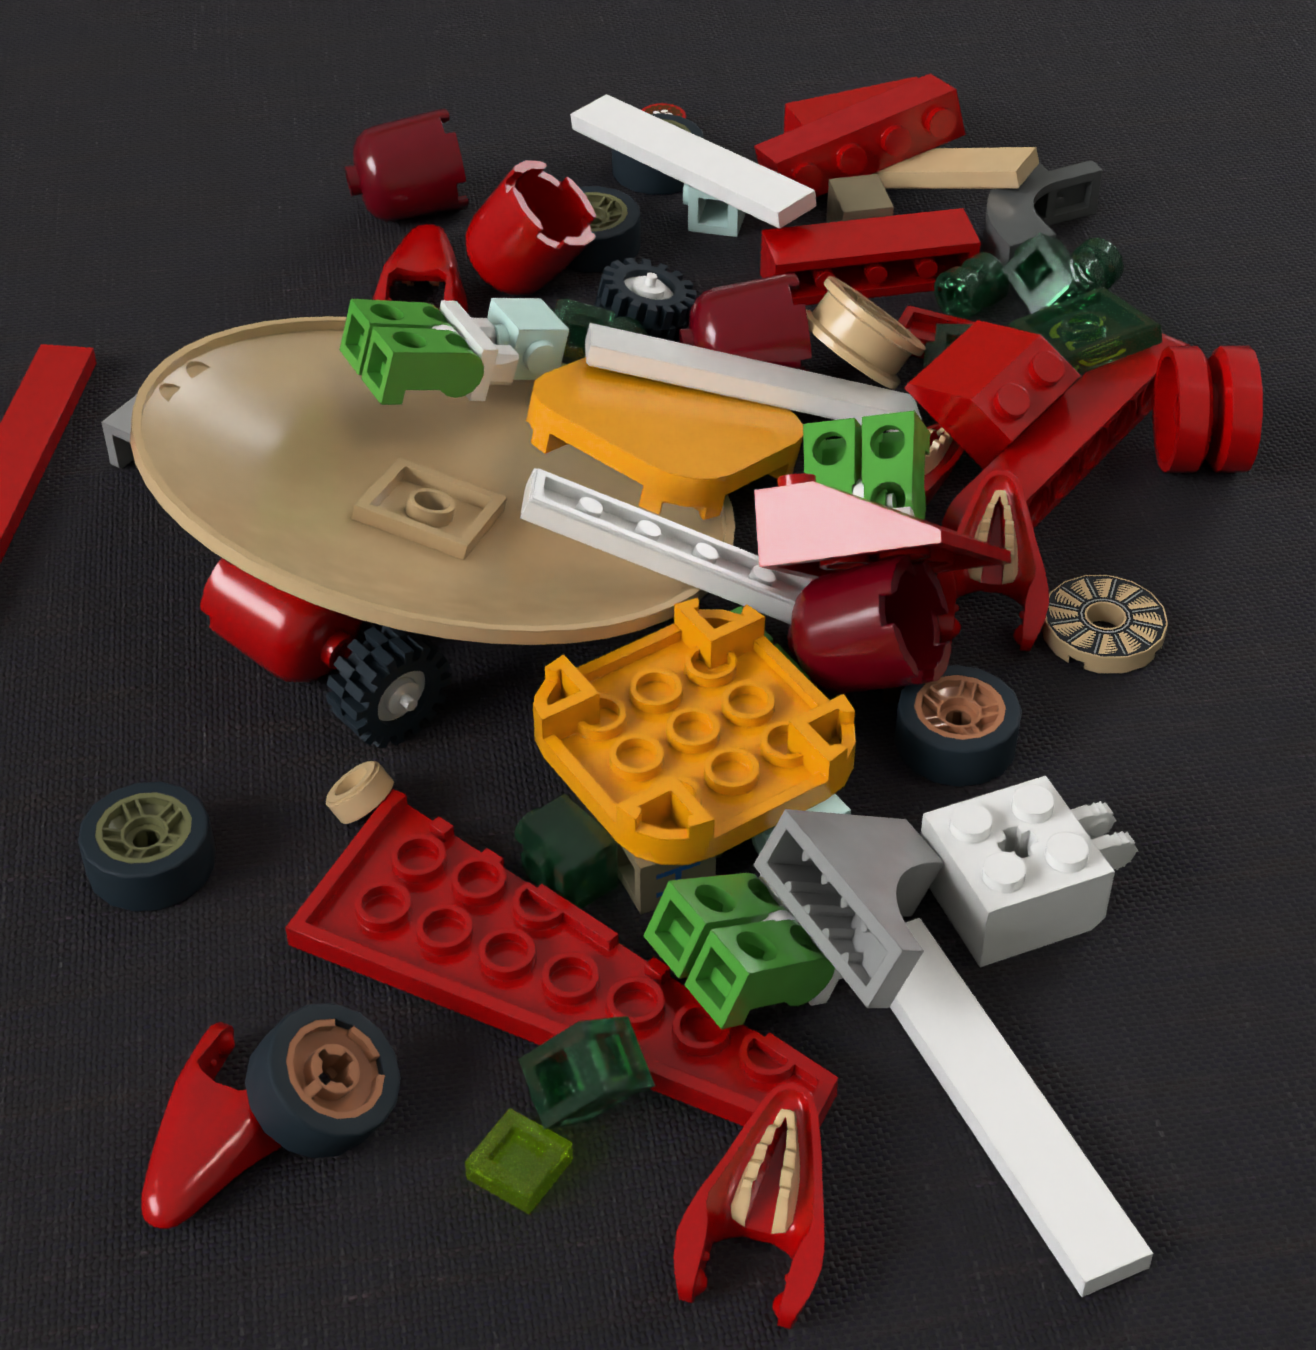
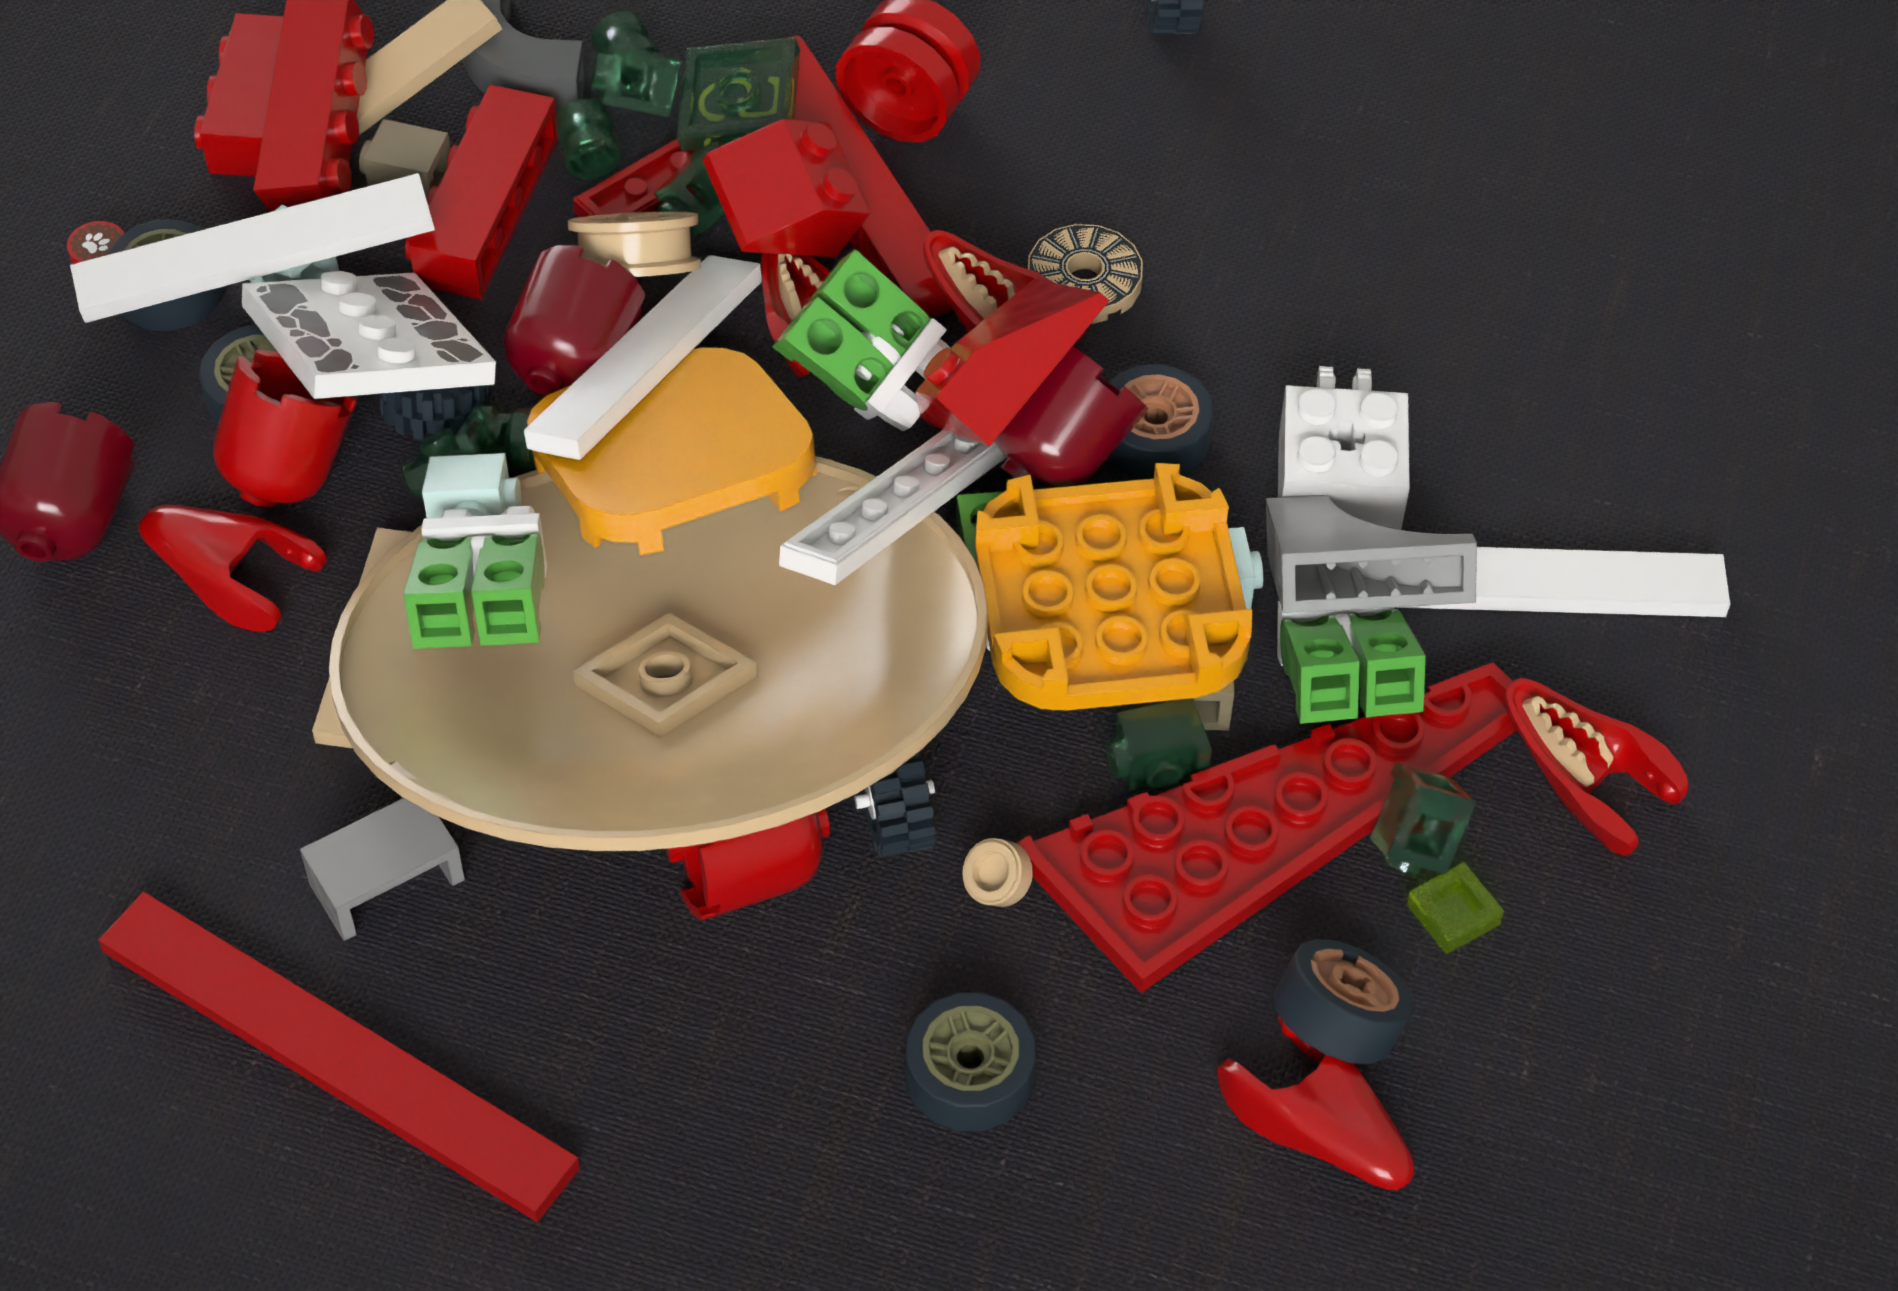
camera: 65 degrees left, 10 degrees up
(642, 233) = (366, 334): none -> white plate

